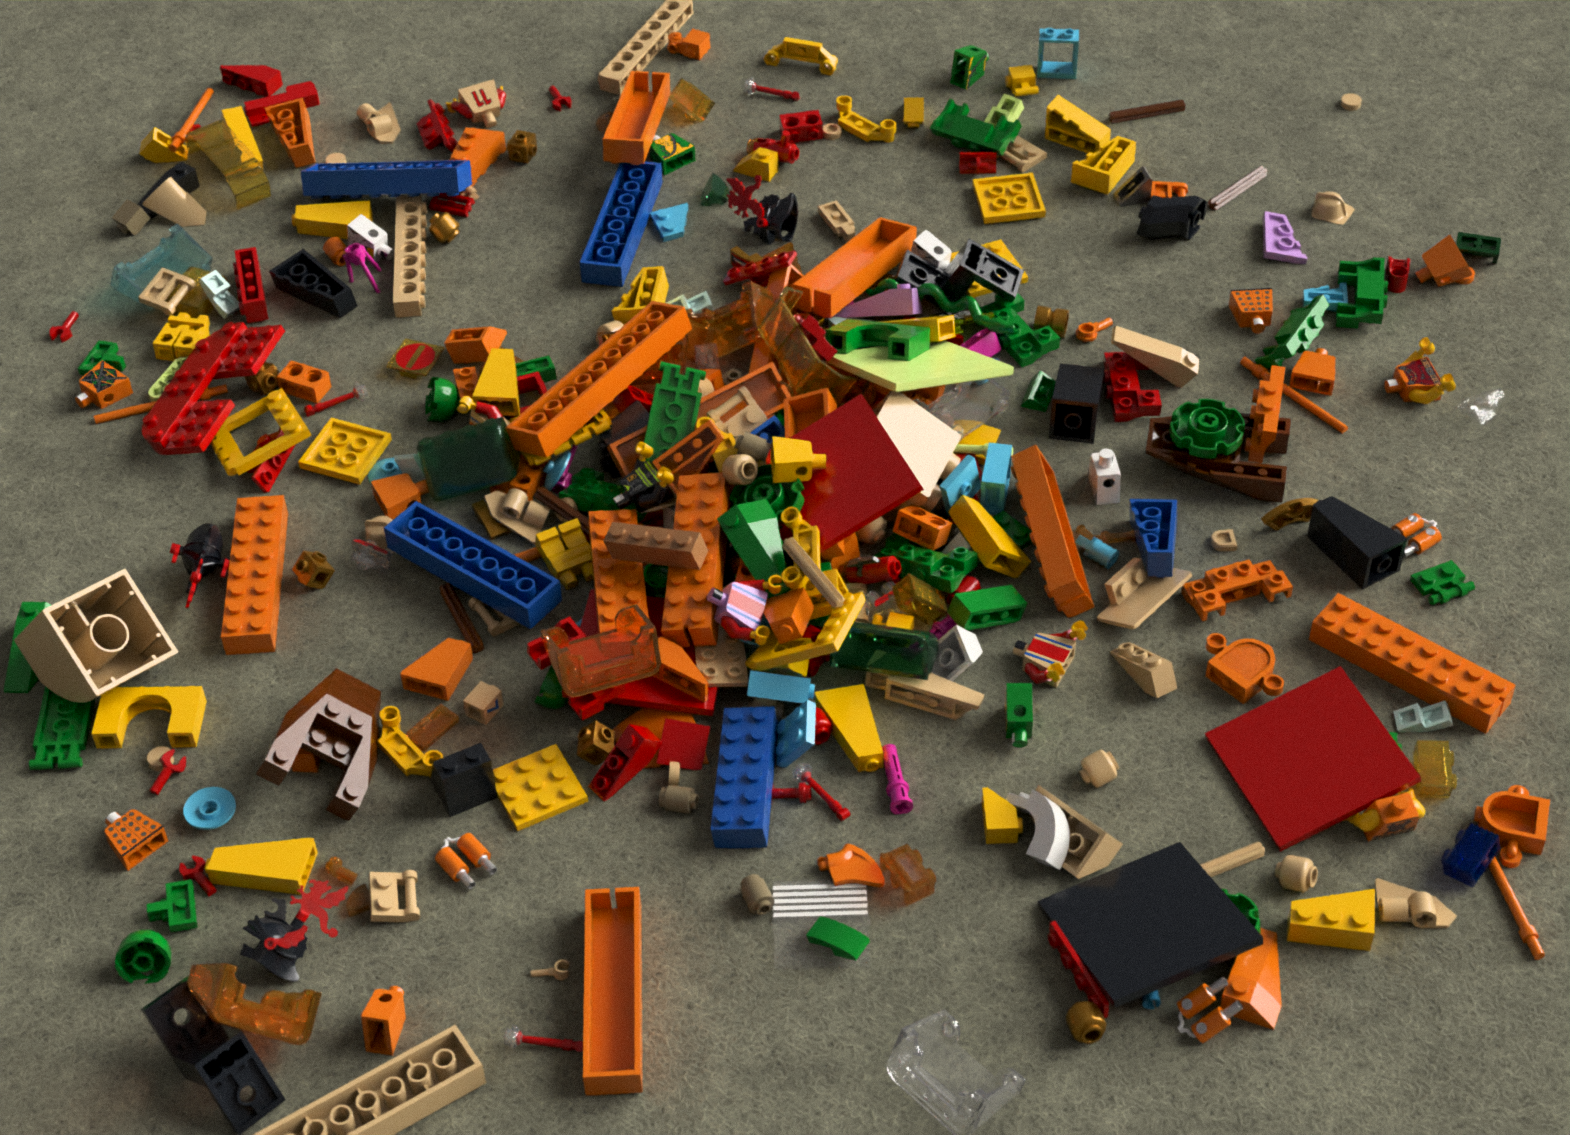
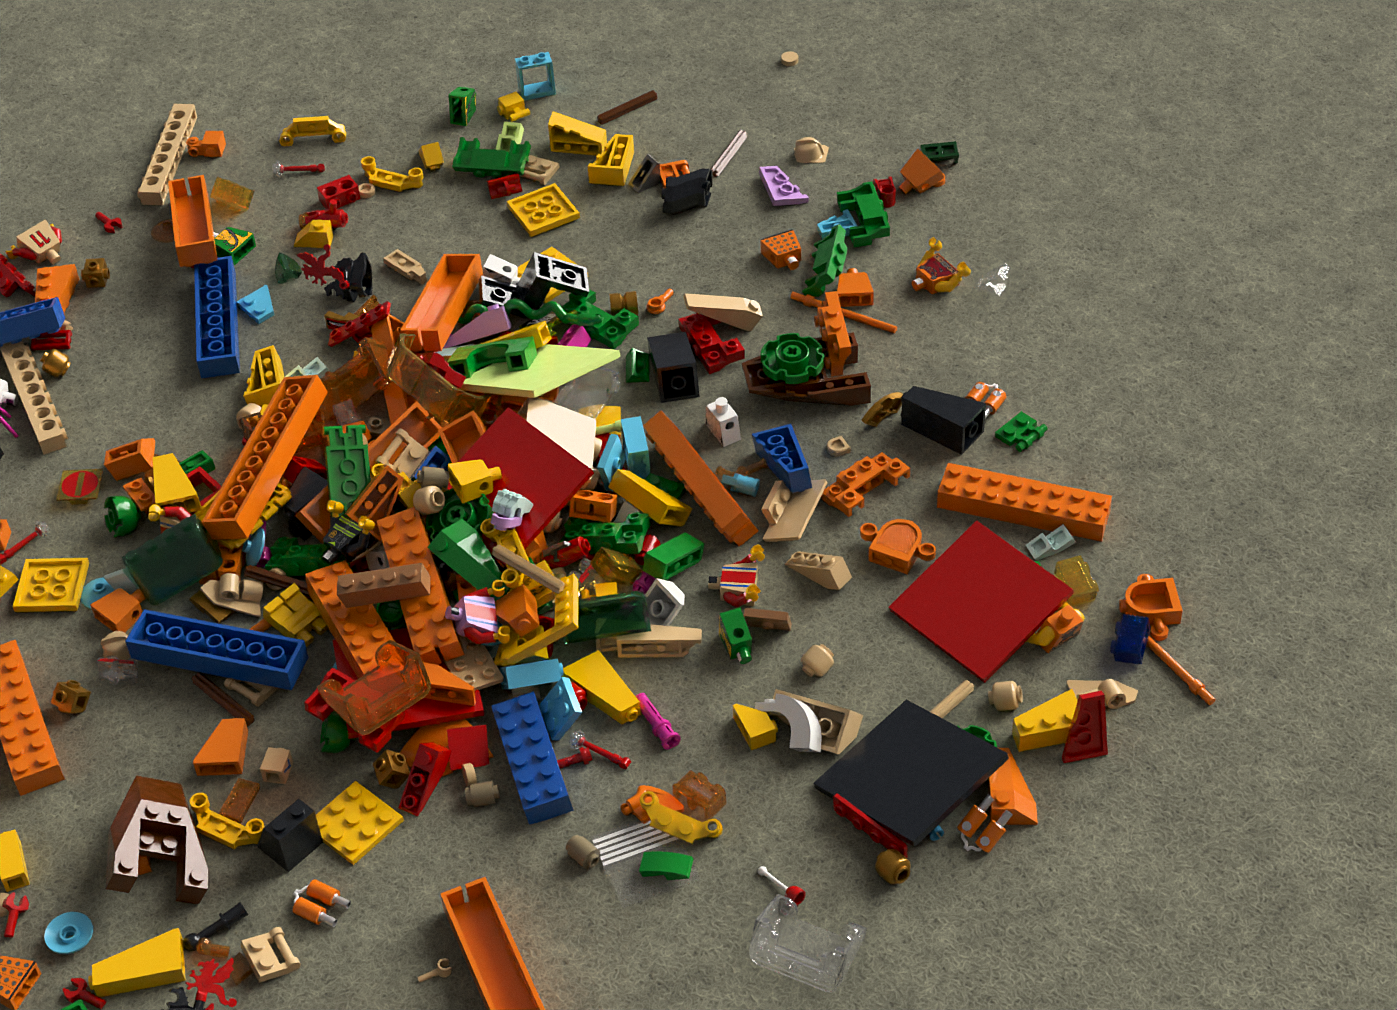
camera: 20 degrees left, 0 degrees up
(366, 846) = (226, 920): none -> black pin
(810, 513) = (502, 522): none -> lavender plate
(819, 496) = (510, 503): none -> light aqua hand
(868, 897) = (676, 823): none -> yellow plate
(962, 1014) = (793, 892): none -> hinge
(1060, 706) = (767, 619): none -> medium nougat plate
(1372, 940) = (1088, 729): none -> red wing

